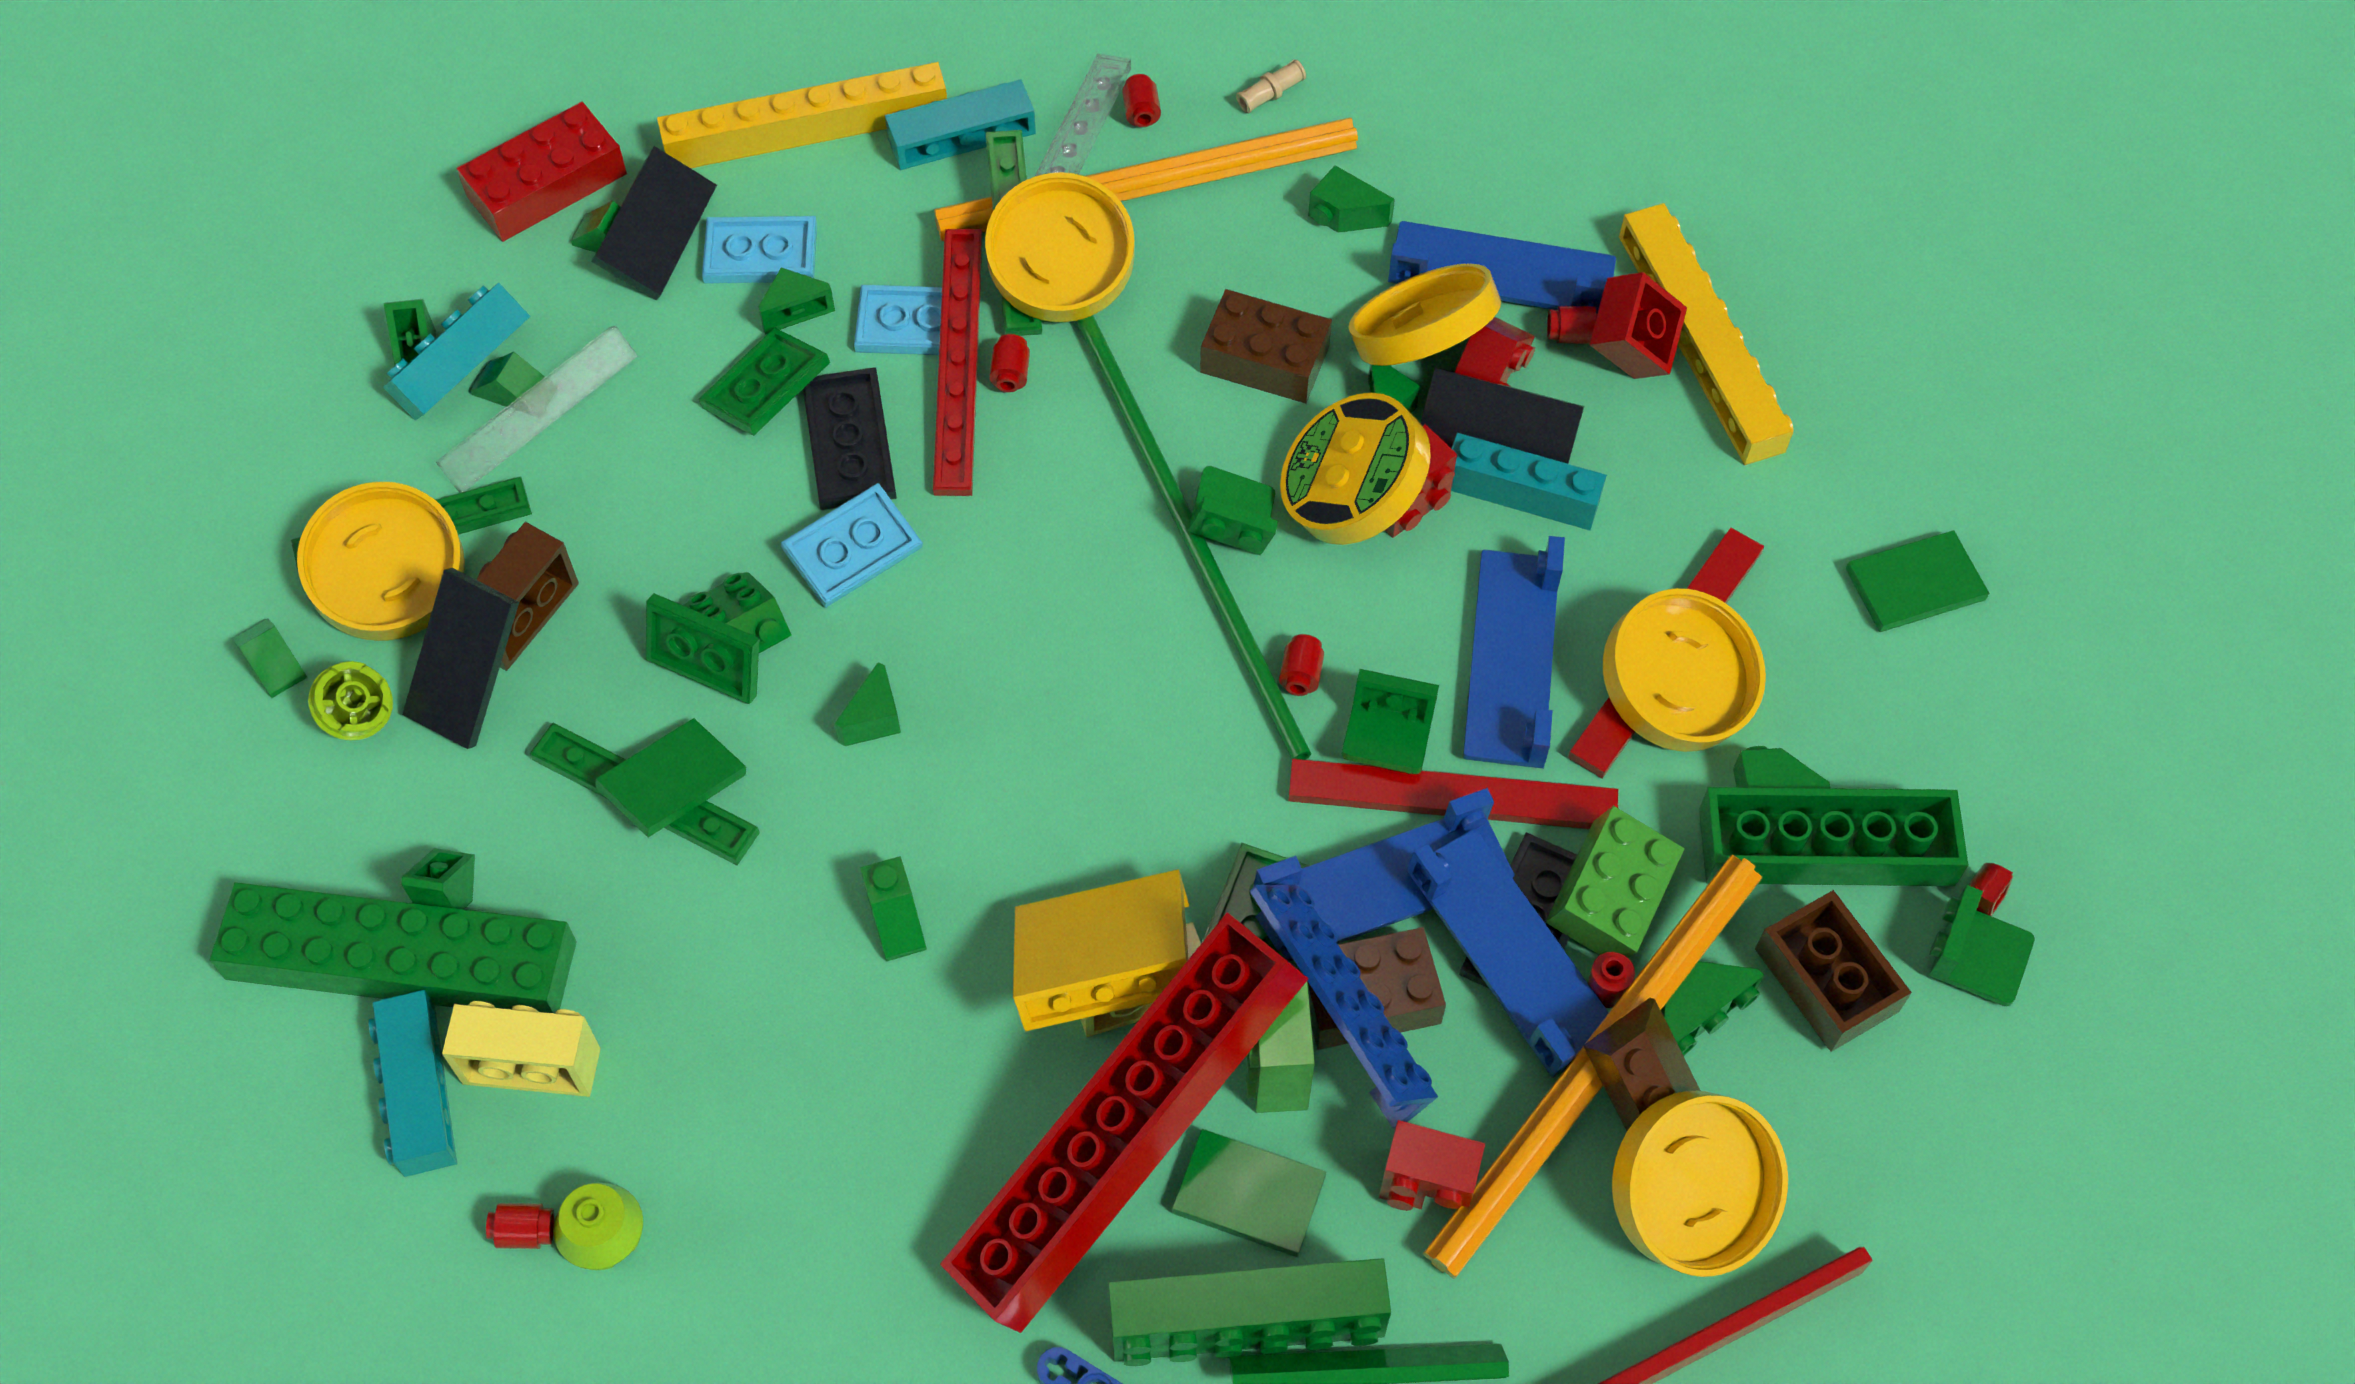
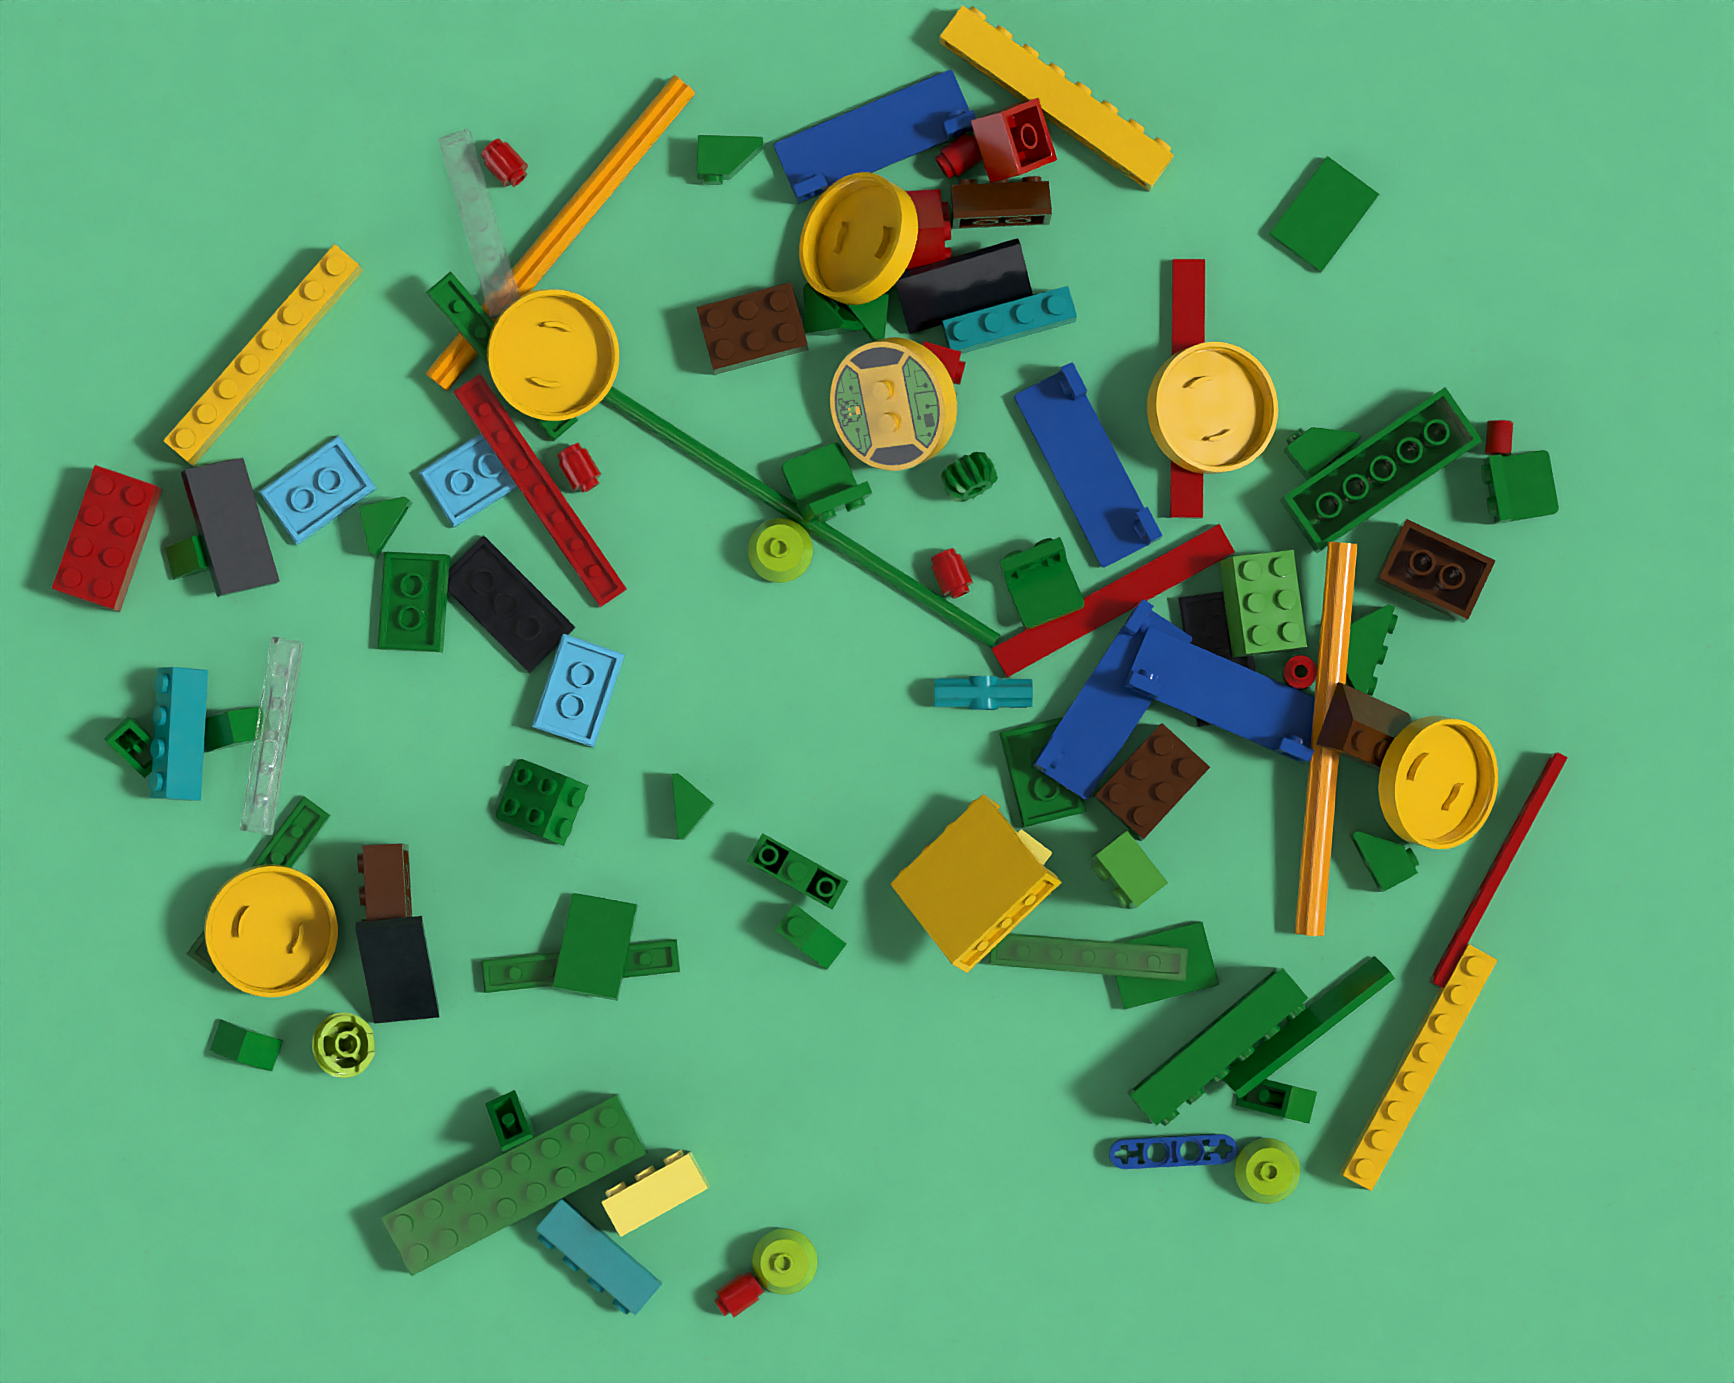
camera: 35 degrees left, 25 degrees up
(702, 648) = (546, 846): green tile -> none
(927, 830) = (797, 871): none -> green slope
(958, 123) = (384, 279): teal brick -> none
(1122, 1123) = (1074, 992): red brick -> none
(1146, 543) = (780, 550): none -> lime cone
(1201, 1145) = (1091, 956): none -> green tile
(1252, 793) = (983, 693): none -> teal piece
(1271, 86) = (592, 79): tan pin -> none
(1295, 926) = (1148, 815): blue bracket -> none
(1344, 372) = (826, 316): none -> green slope
(1384, 584) = (969, 476): none -> green gear
(1432, 1166) = (1270, 883): red brick -> none
(1573, 375) = (1000, 203): none -> reddish brown slope
(1582, 1240) = (1385, 860): none -> green slope

